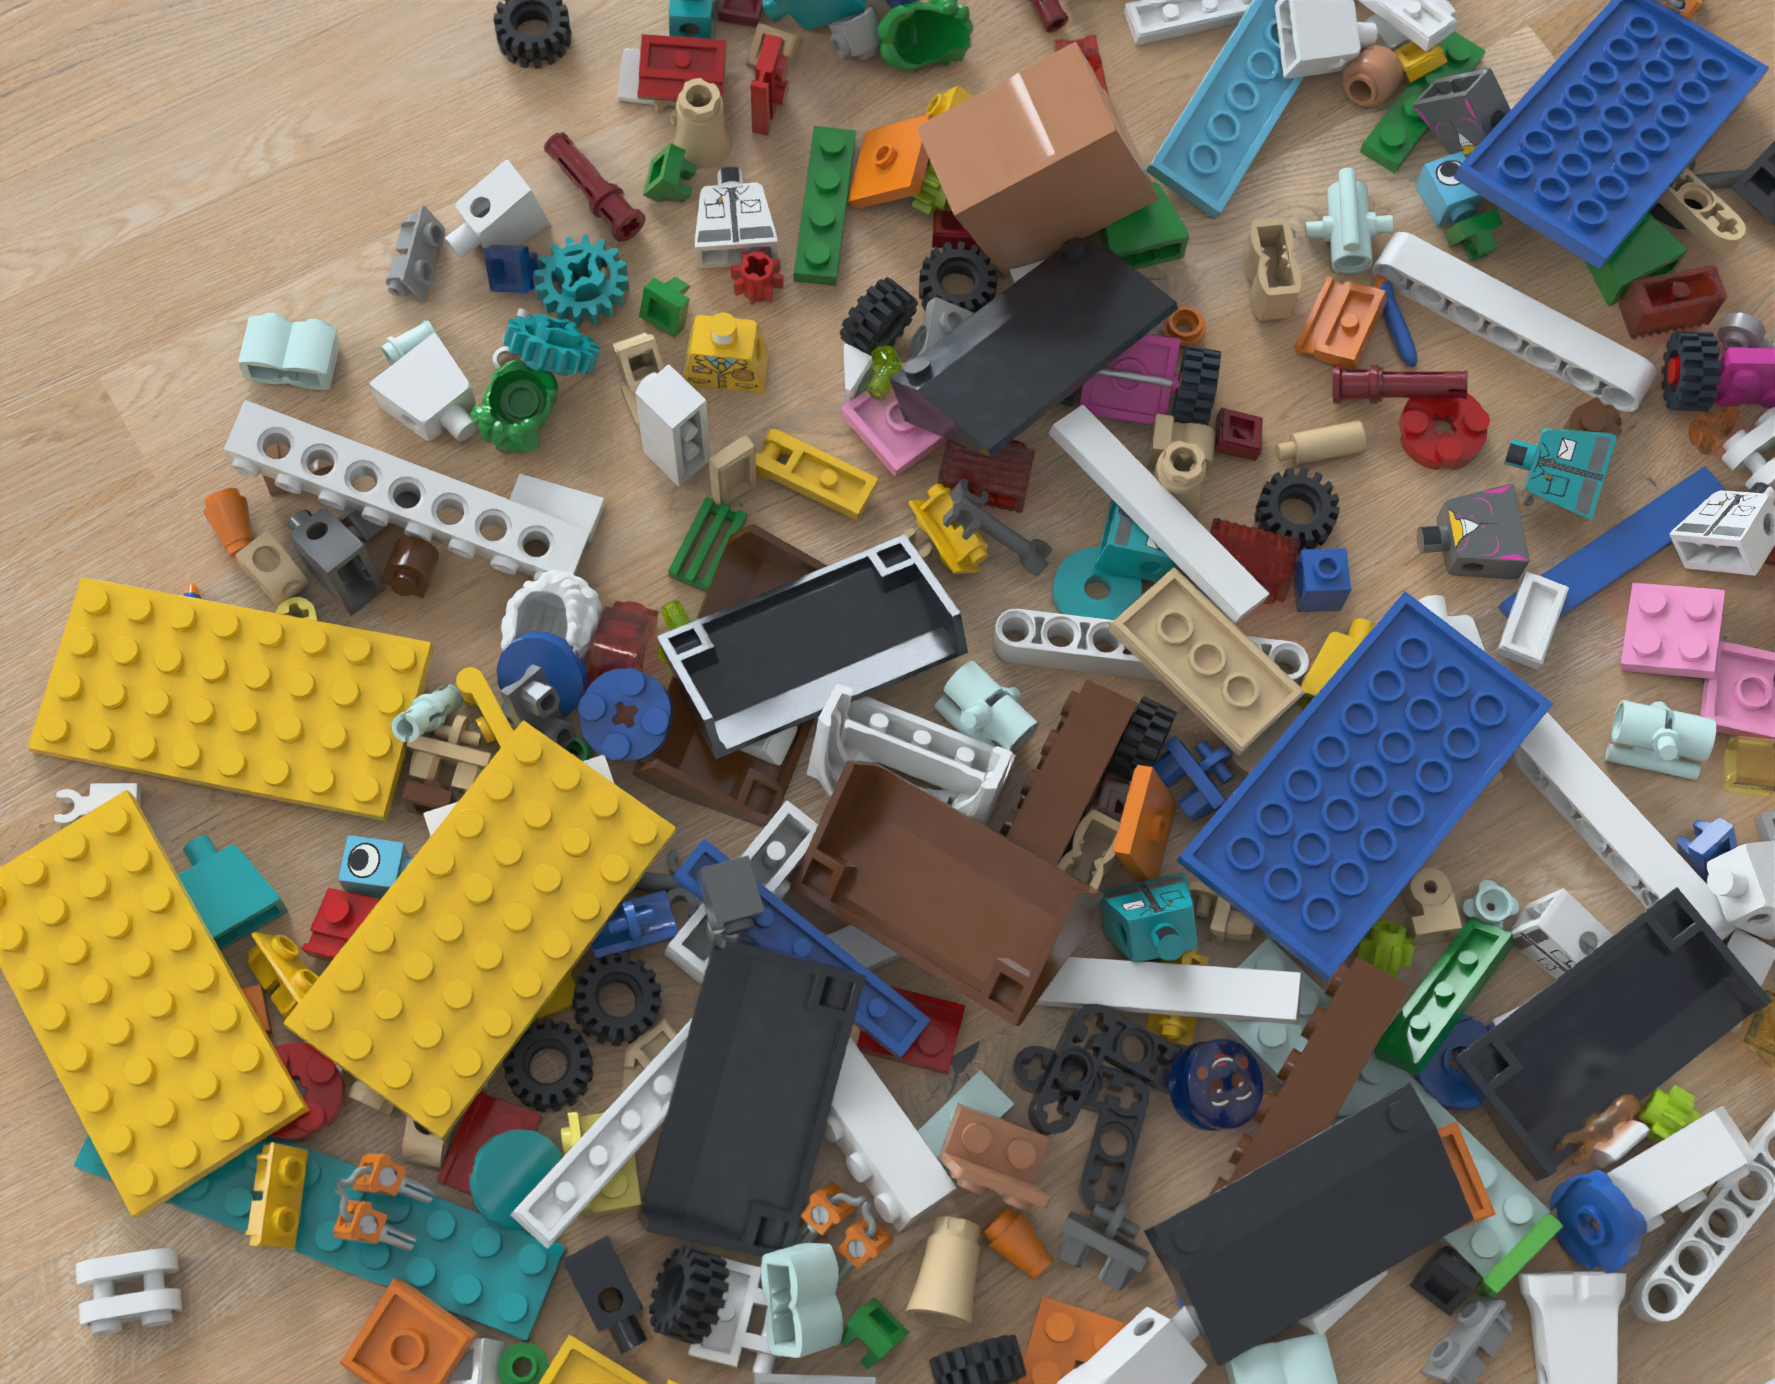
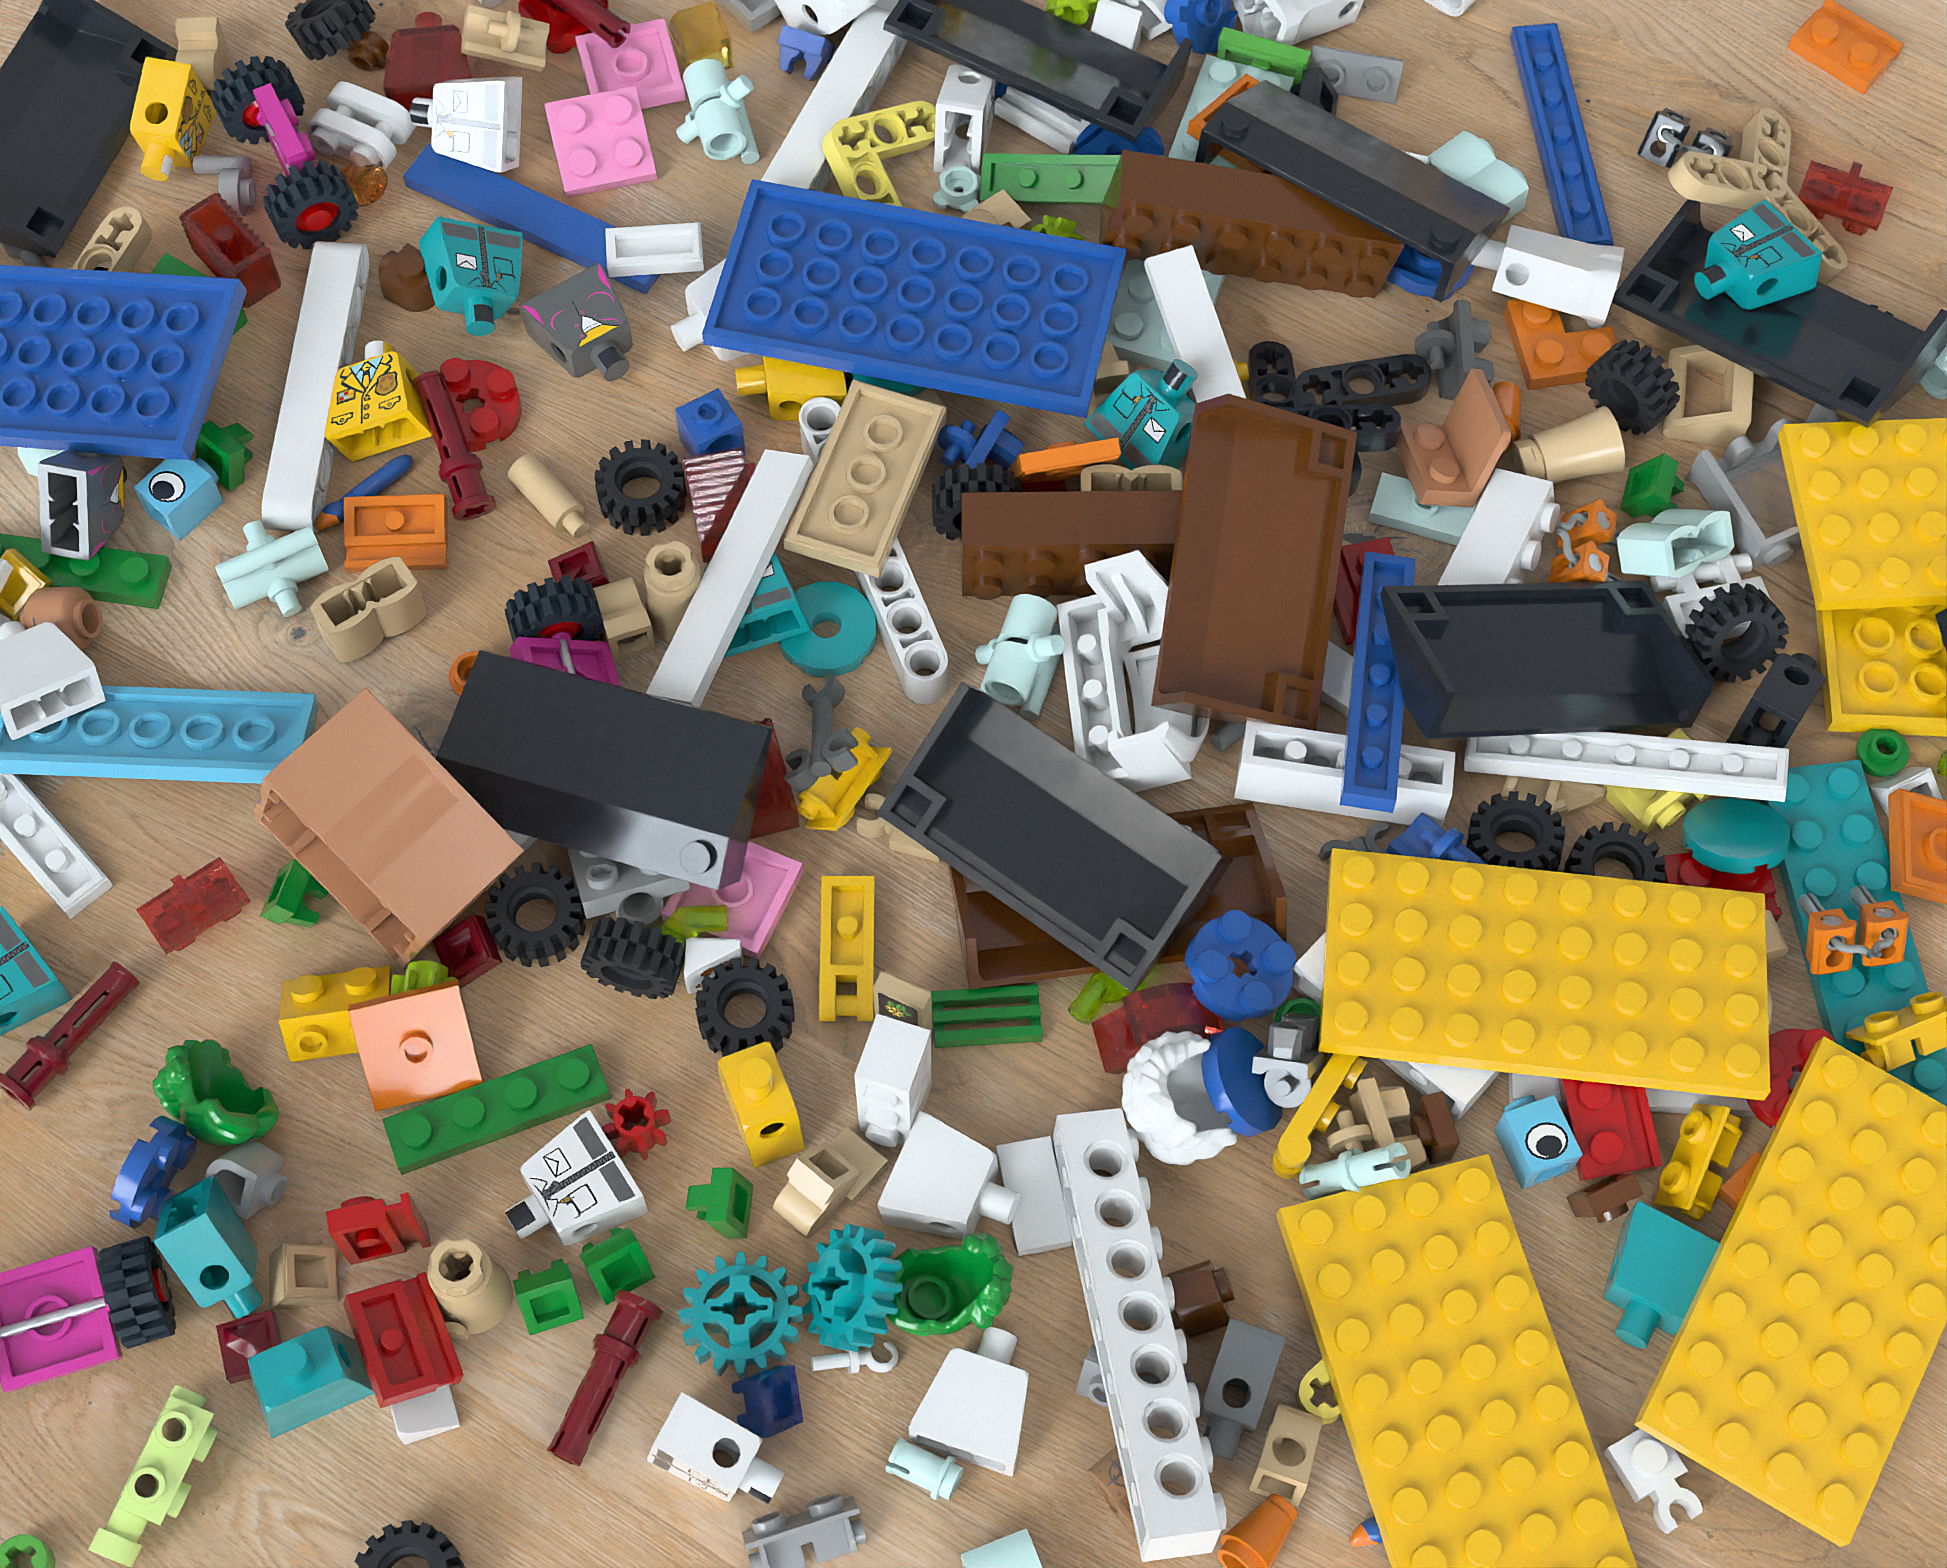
camera: 115 degrees left, 5 degrees down
(304, 888) = (1605, 1198): none -> reddish brown plate
(594, 447) = (944, 1183): none -> white torso
(664, 222) = (616, 1264): none -> green tile
(730, 895) = (1387, 732): dark grey brick -> none
(809, 362) = (740, 980): none -> black tyre
(1216, 1085) = (1267, 317): clear blue head -> none
(1472, 343) = (375, 405): none -> yellow torso
(1545, 825) = (867, 153): none -> light yellow beam
(1602, 1126) = (1117, 36): clear orange piece -> none

